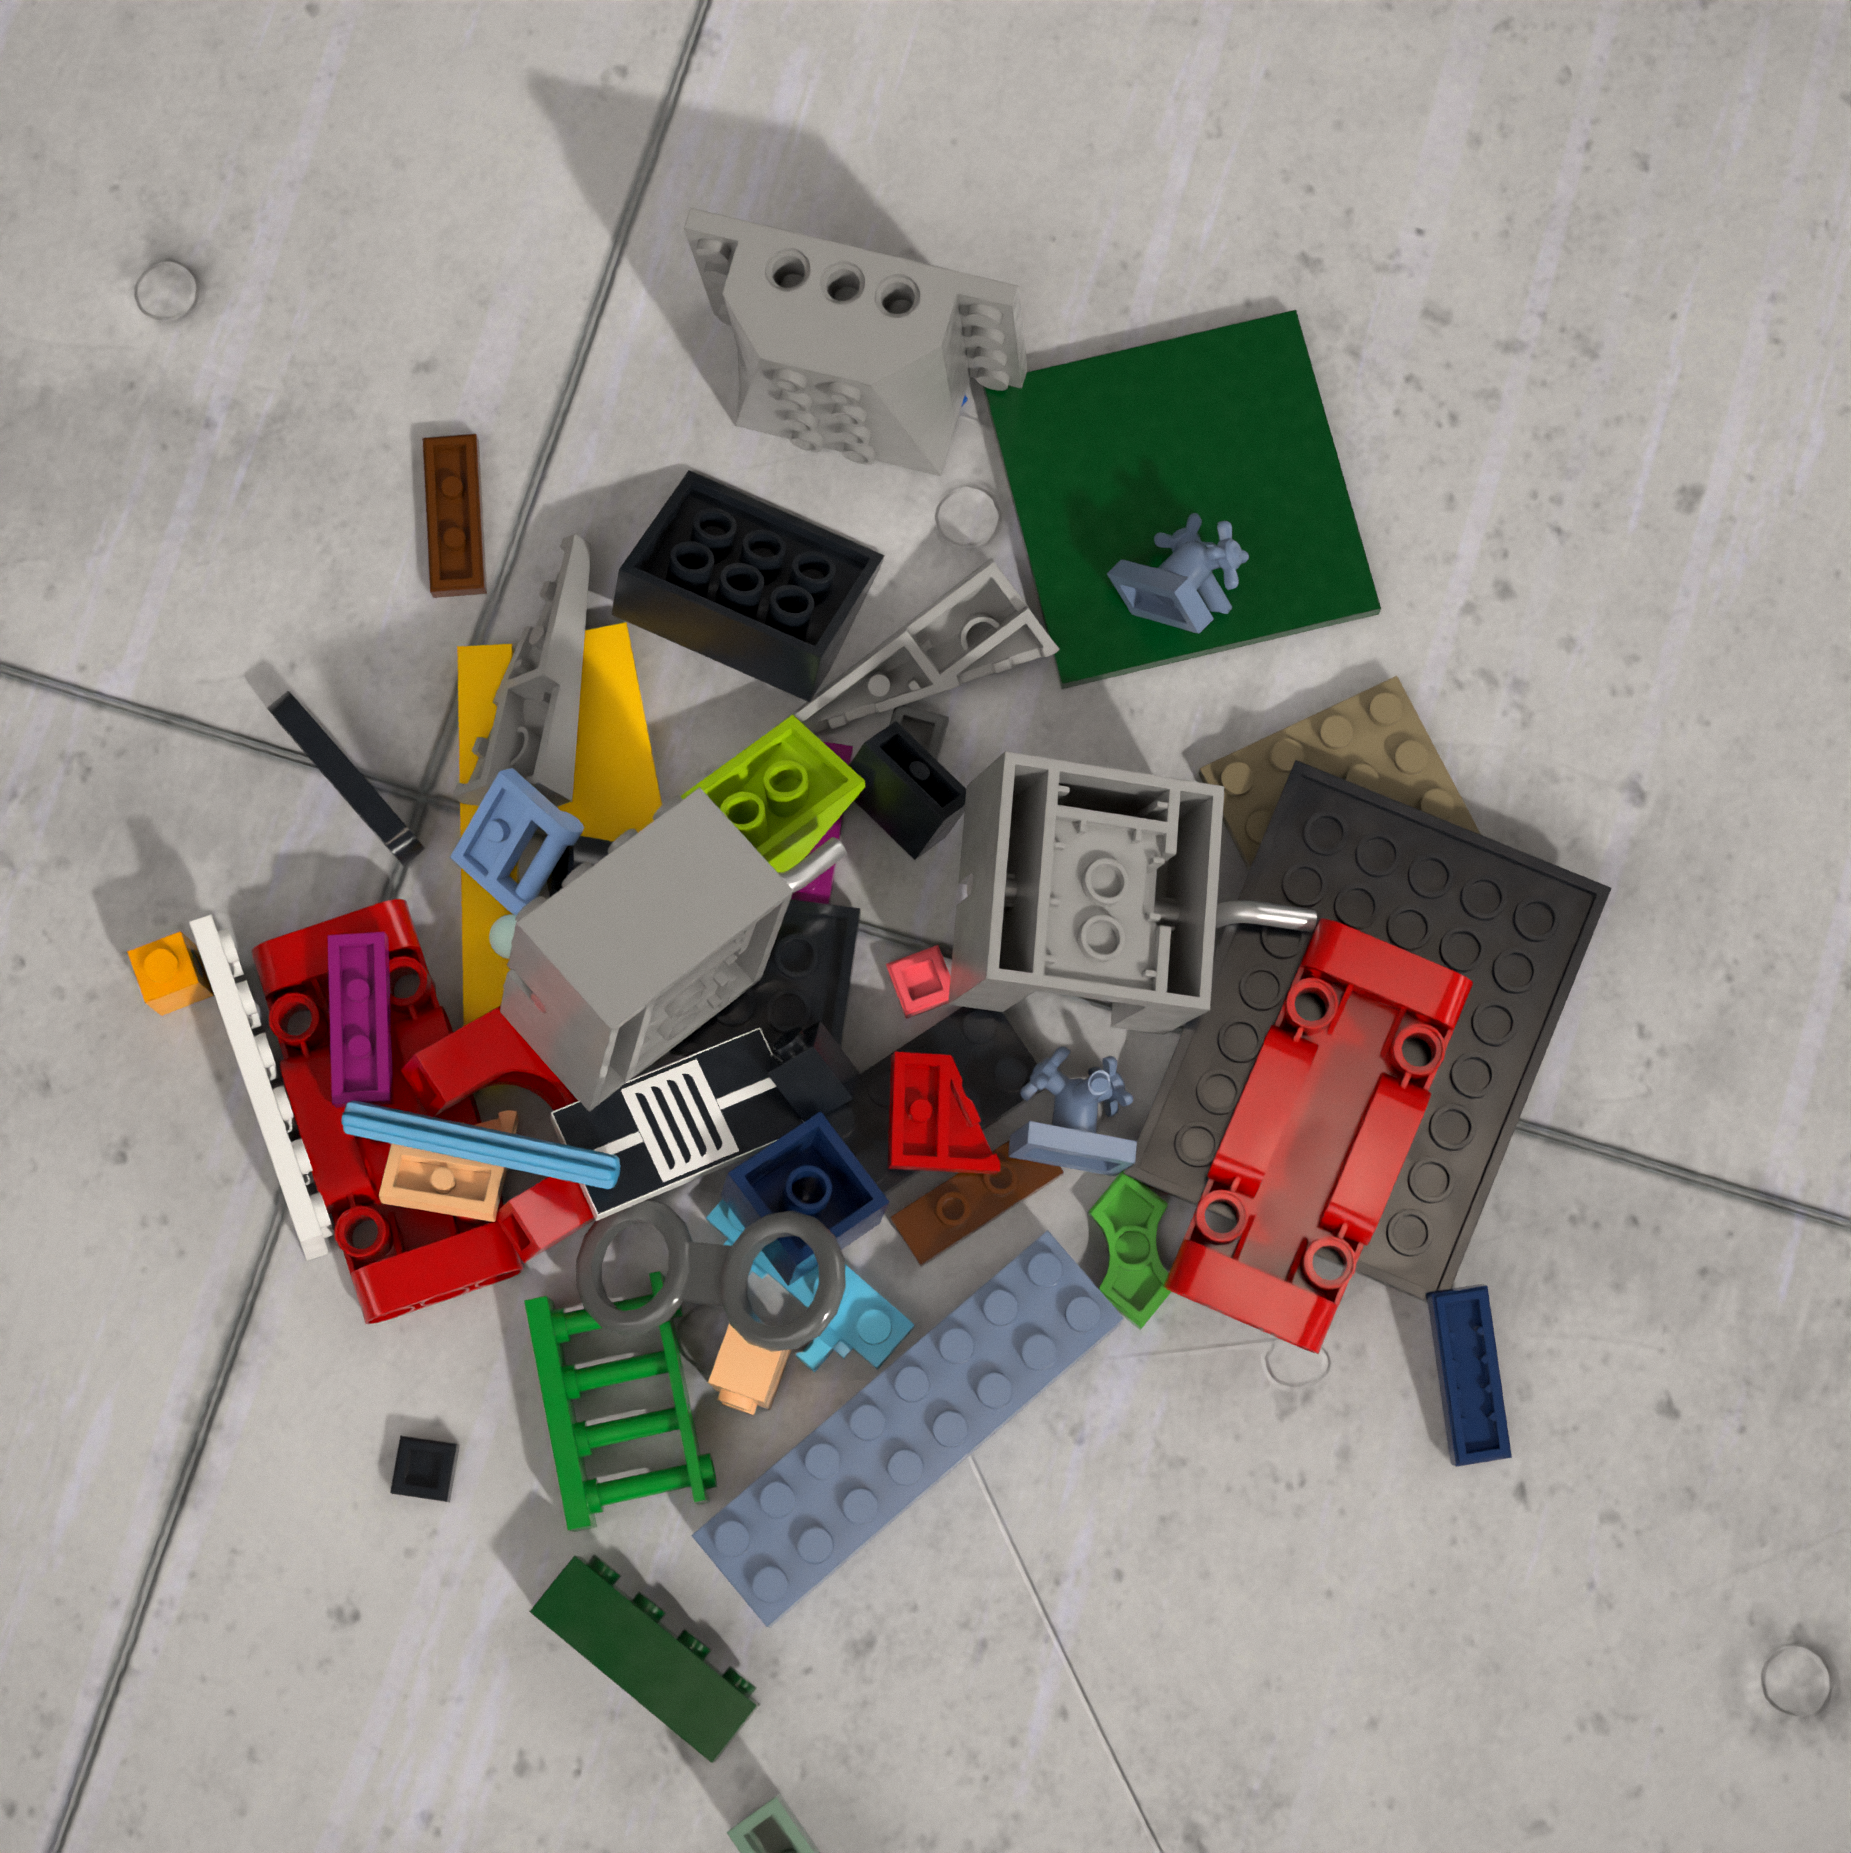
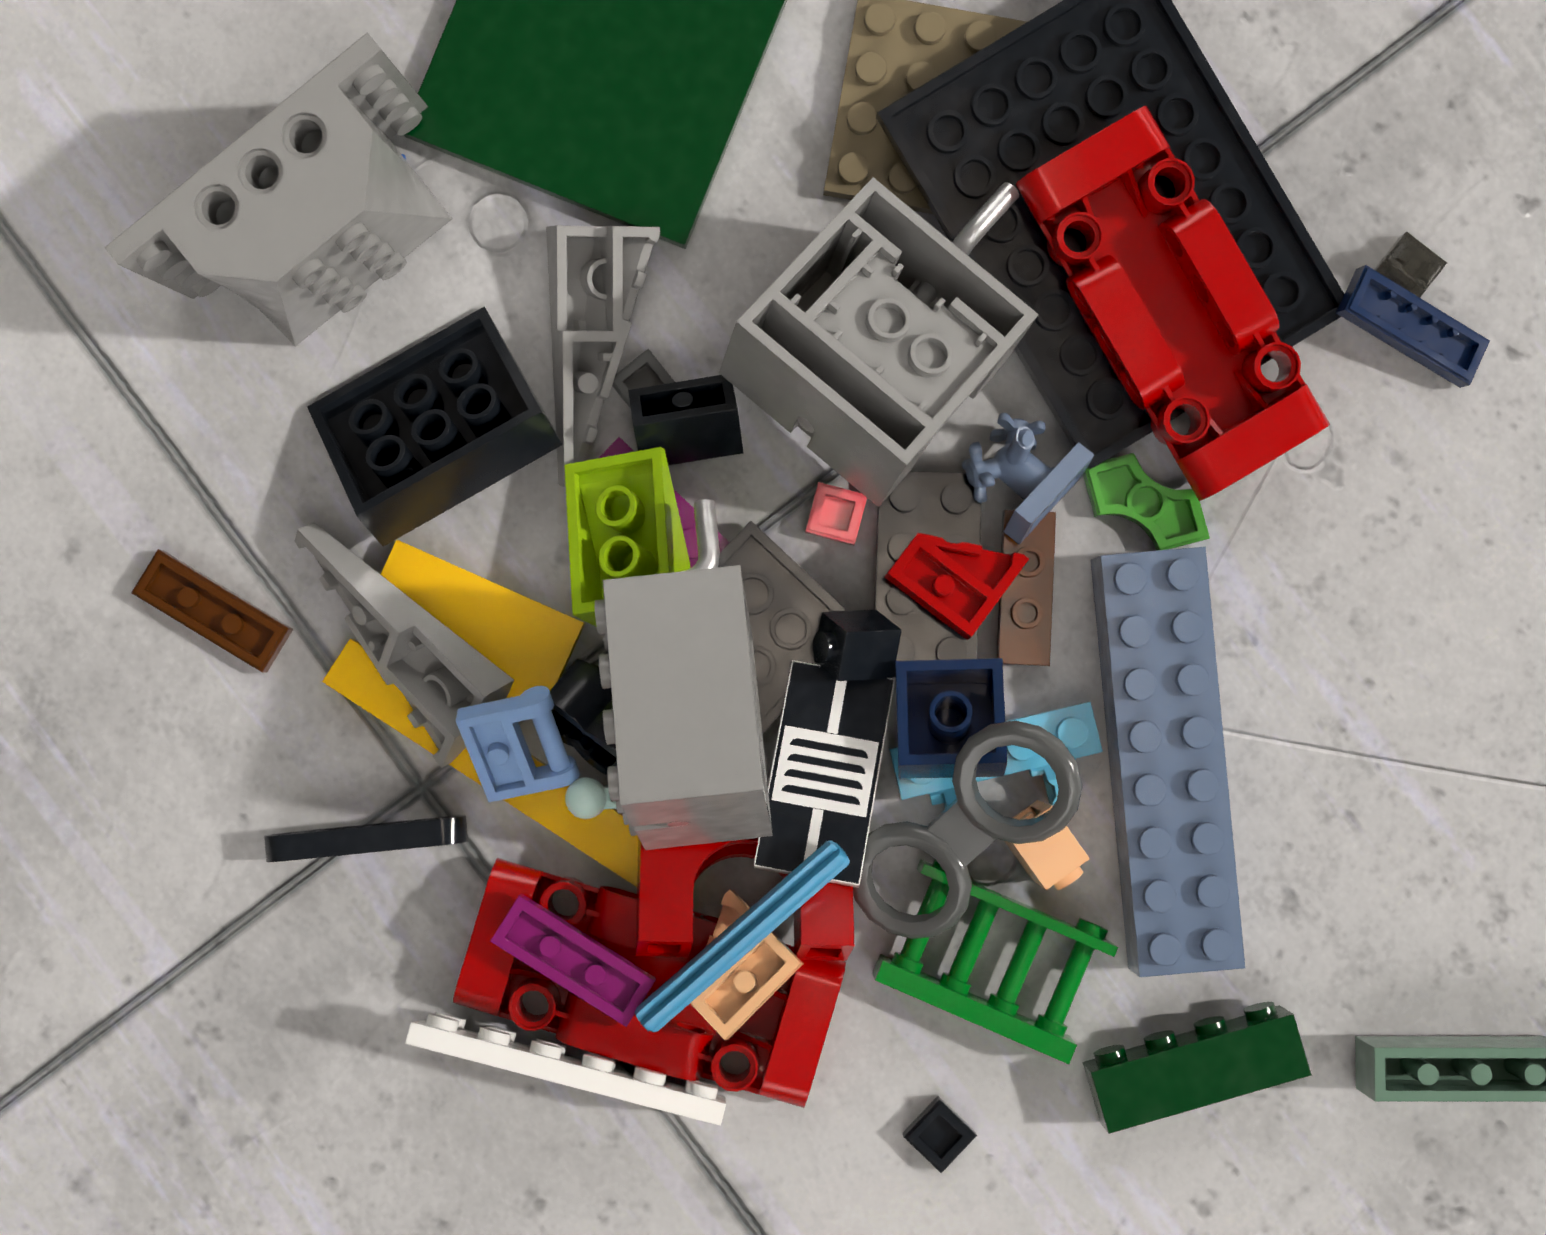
camera: 55 degrees left, 10 degrees up
(170, 973) = (425, 1079): light orange brick -> none
(1170, 591) = (683, 96): sand blue piece -> none
(1523, 1336) = (1411, 264): none -> clear smoke tile

